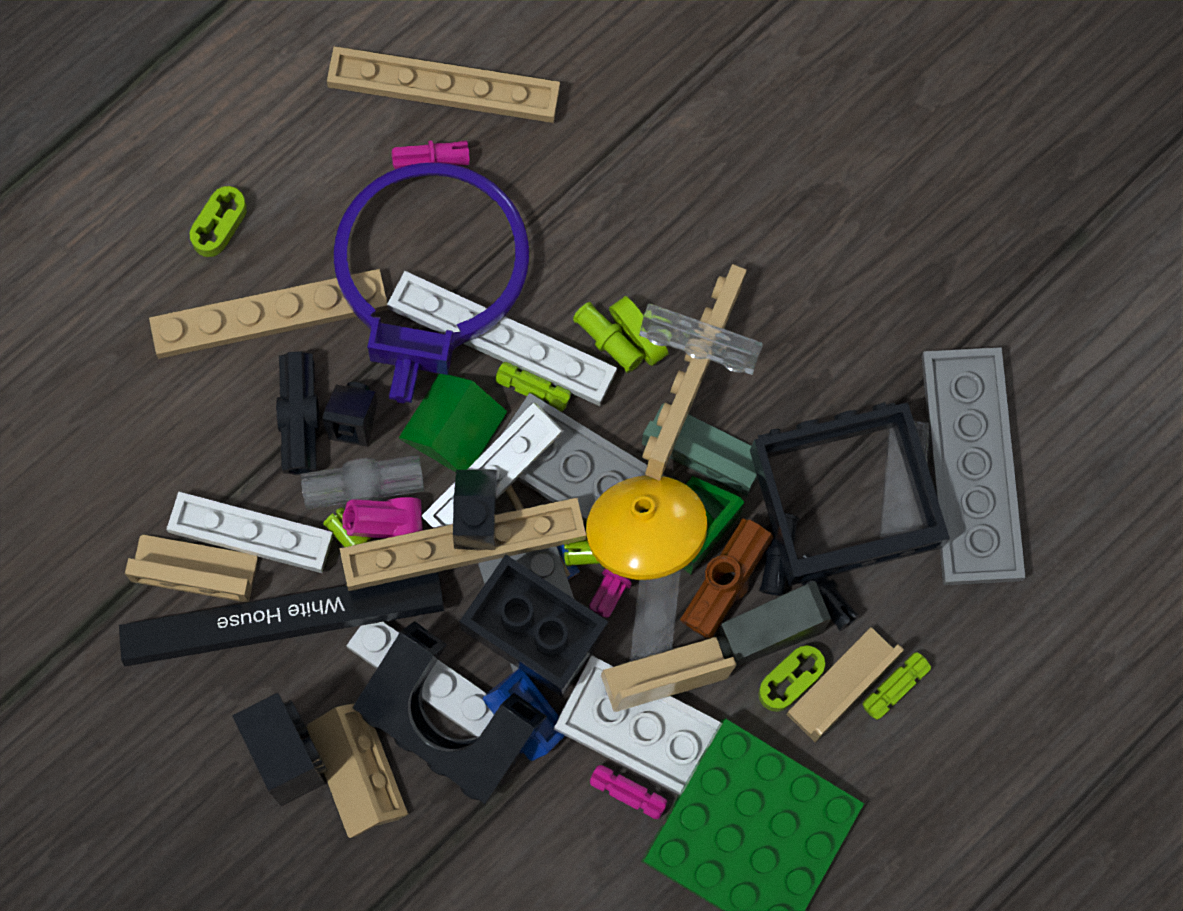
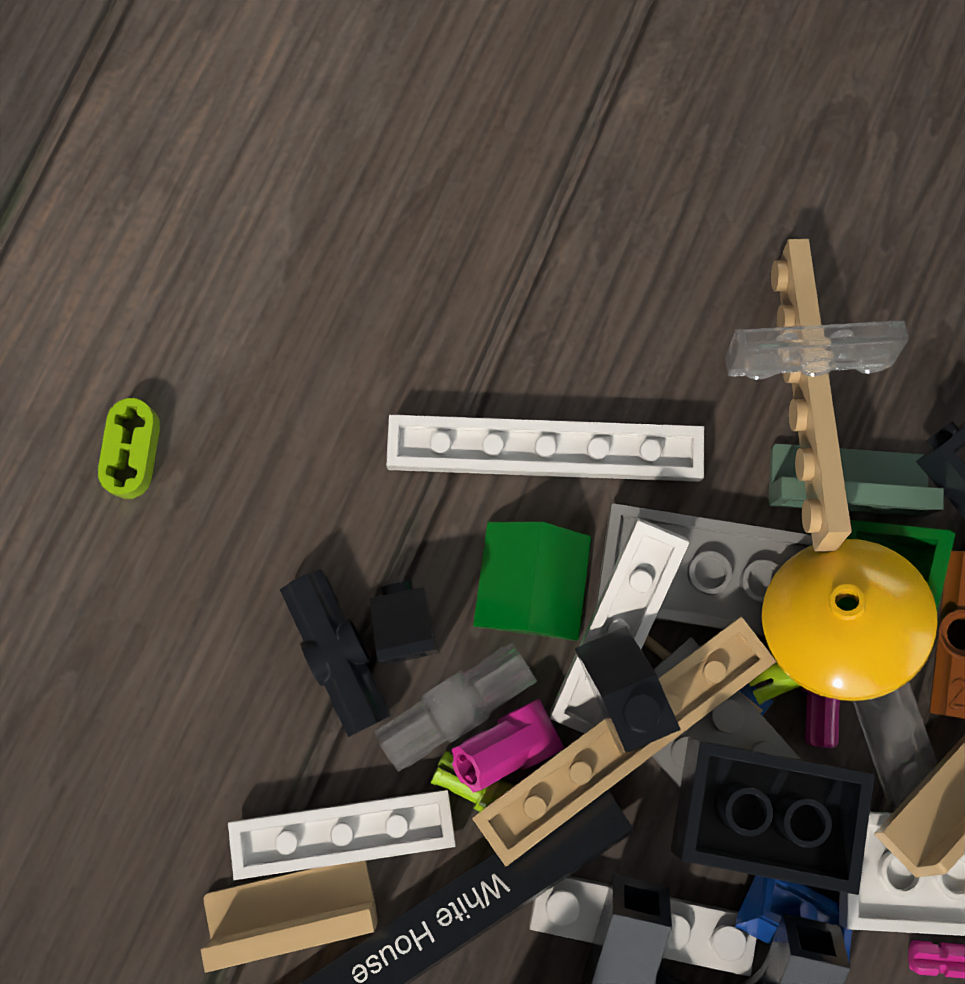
camera: 20 degrees left, 5 degrees up
(261, 315) = (240, 540): tan plate -> none
(414, 348) = (444, 507): dark purple brick -> none
(443, 84) = (332, 165): tan plate -> none
(450, 153) = (356, 258): dark pink axle -> none
(526, 383) = (604, 491): lime axle -> none
(608, 337) = (673, 392): lime pin -> none
(630, 320) = (704, 369): lime beam -> none

